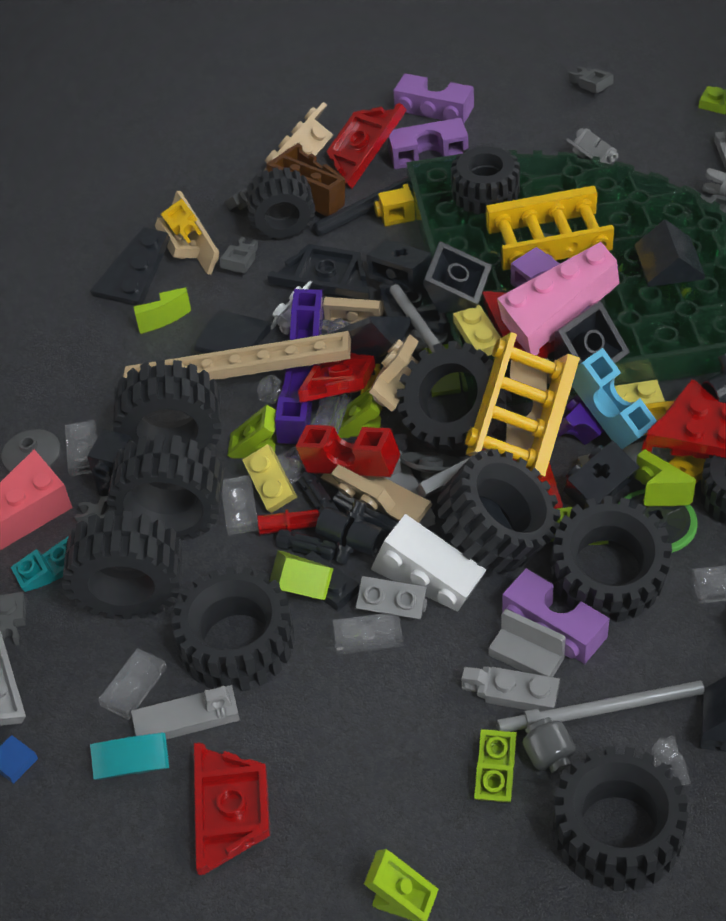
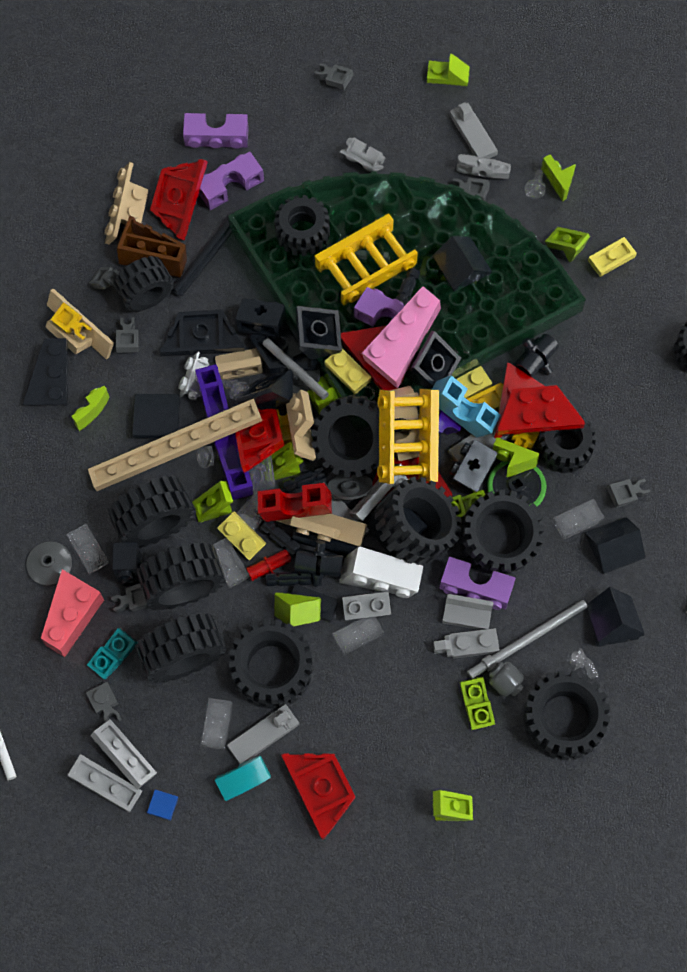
camera: 25 degrees left, 20 degrees up
(395, 206) = (230, 254): yellow brick -> none

